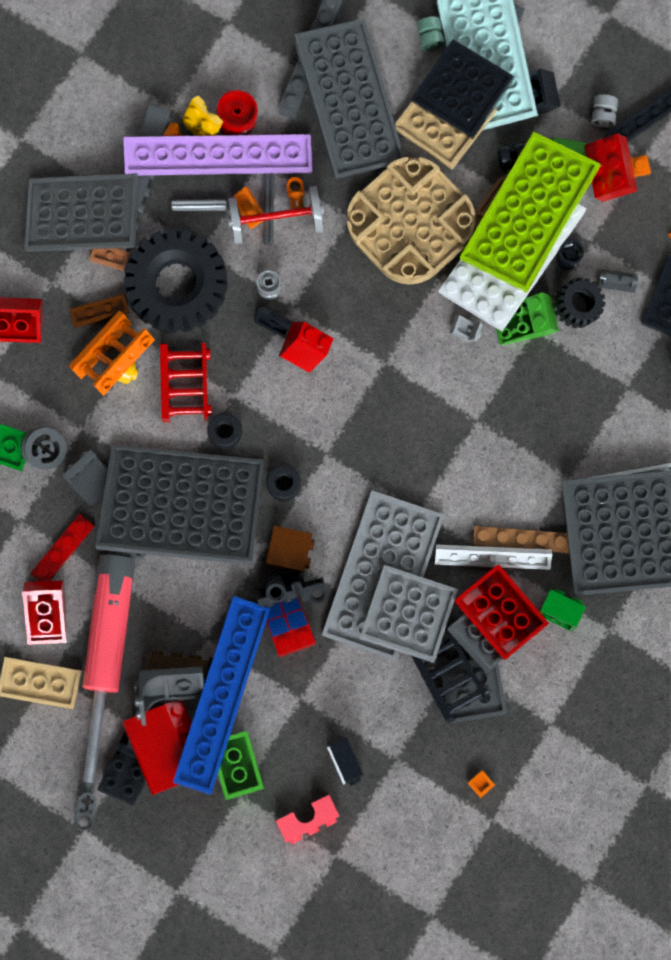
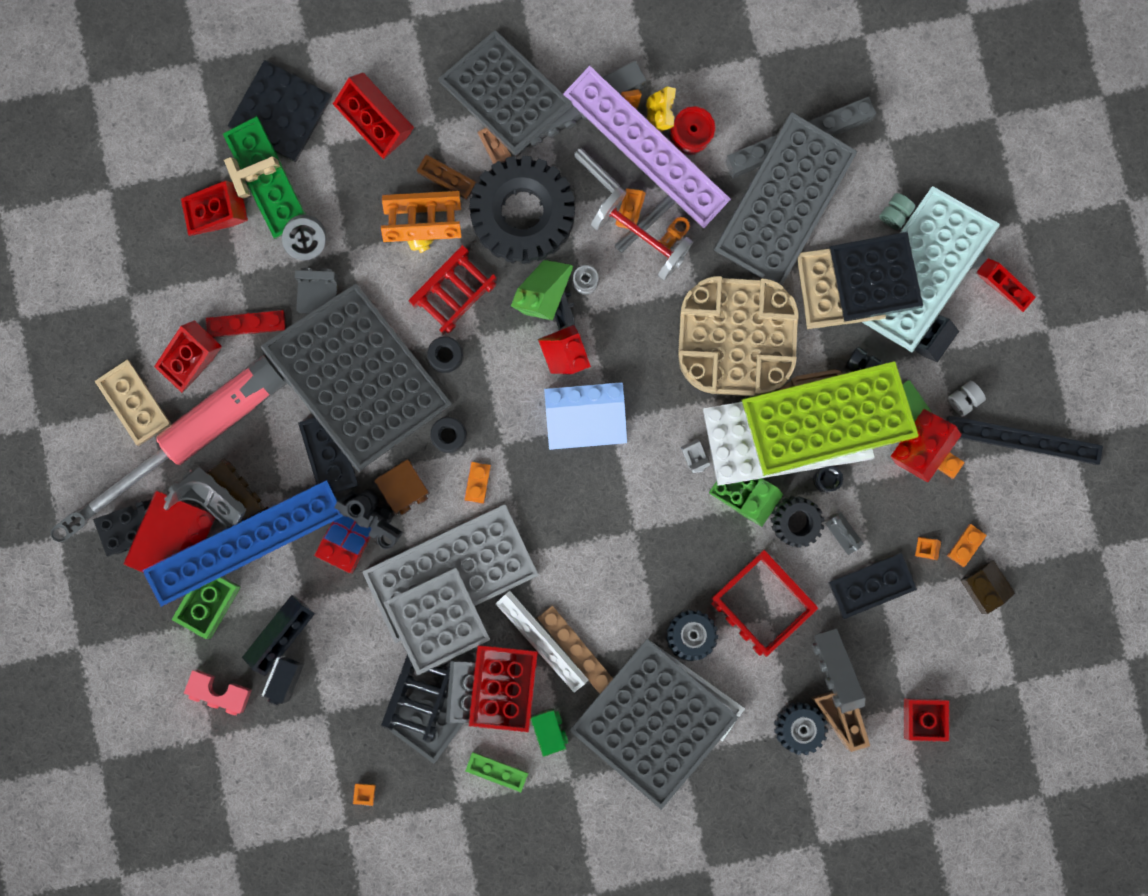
camera: 45 degrees right, 5 degrees up
(214, 580) = (326, 457): none -> black plate
(247, 320) = (542, 290): none -> bright green slope
(309, 736) = (278, 635): none -> black brick
(337, 495) = (477, 482): none -> orange plate
(363, 376) = (585, 415): none -> light blue slope
(551, 11) = (1005, 284): none -> red slope
(554, 675) = (496, 772): none -> bright green plate
(589, 449) = (692, 635): none -> black wheel
(615, 350) = (787, 582): none -> red window

